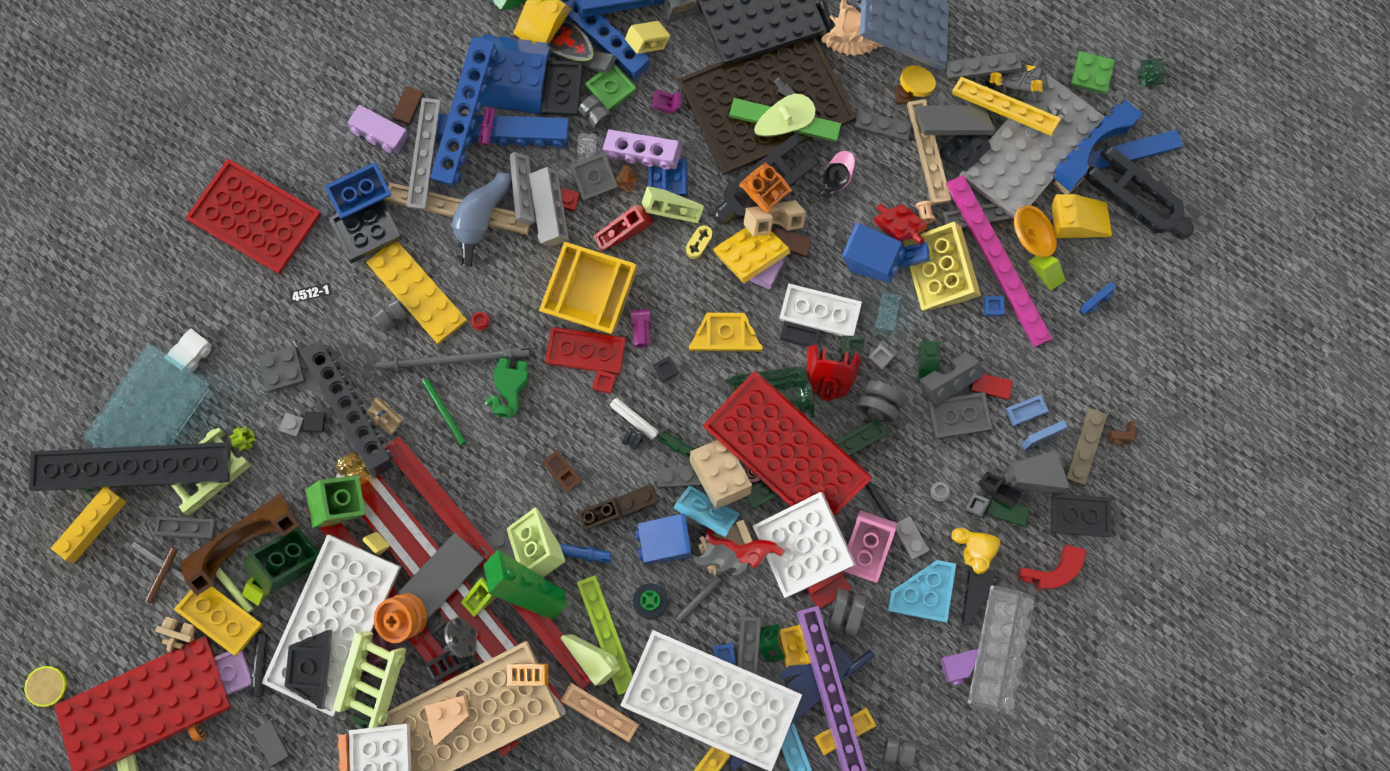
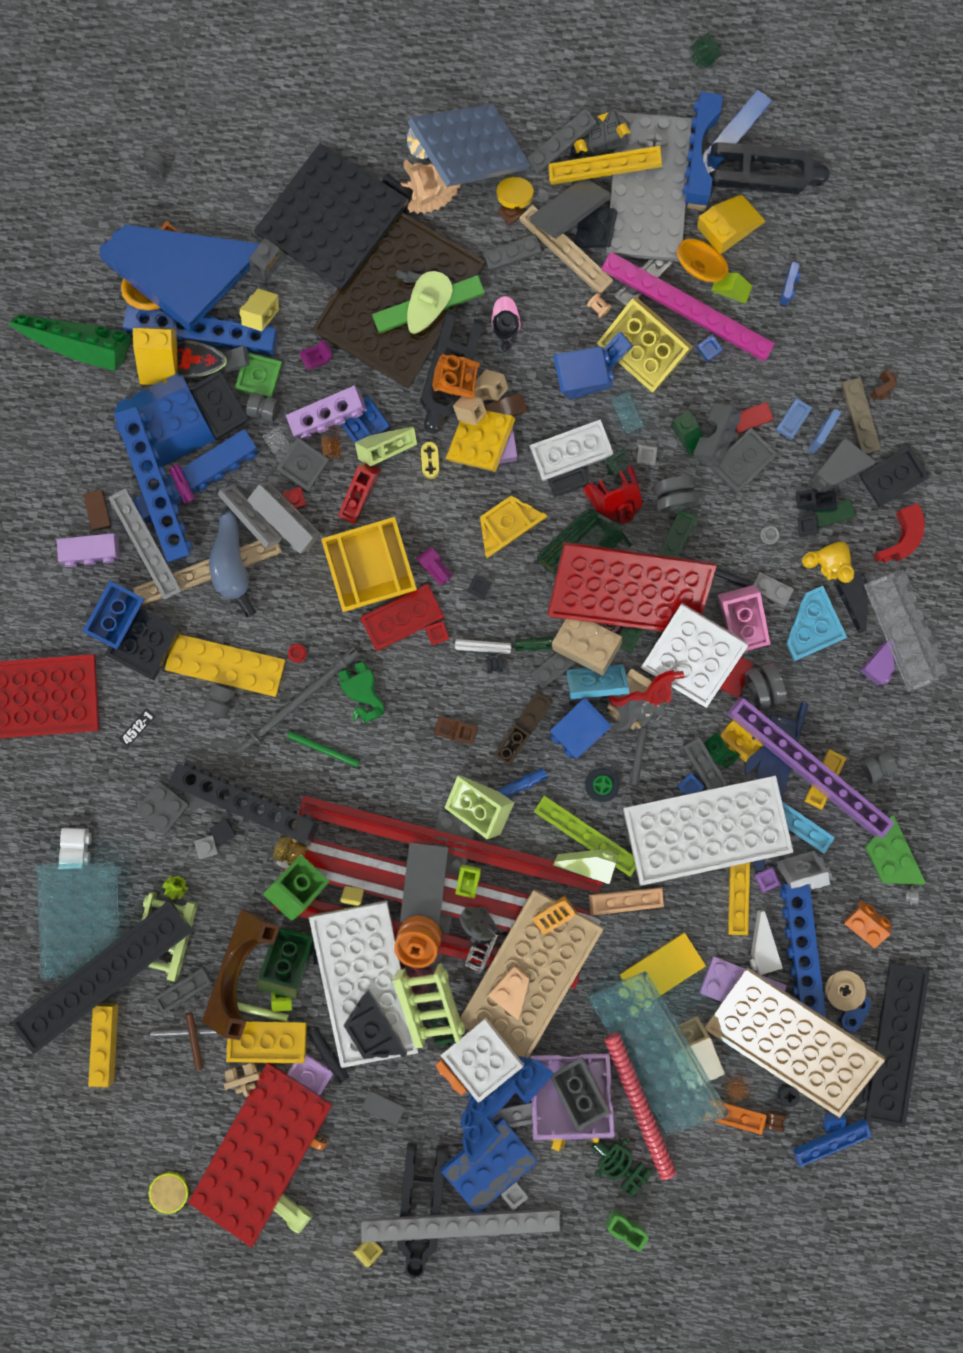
camera: 30 degrees left, 10 degrees up
(384, 416) = (278, 787): tan hips -> none
(522, 586) = (496, 847): green wedge -> none
(900, 223) = (586, 329): red plate -> none
(1092, 72) = (654, 85): bright green plate -> none

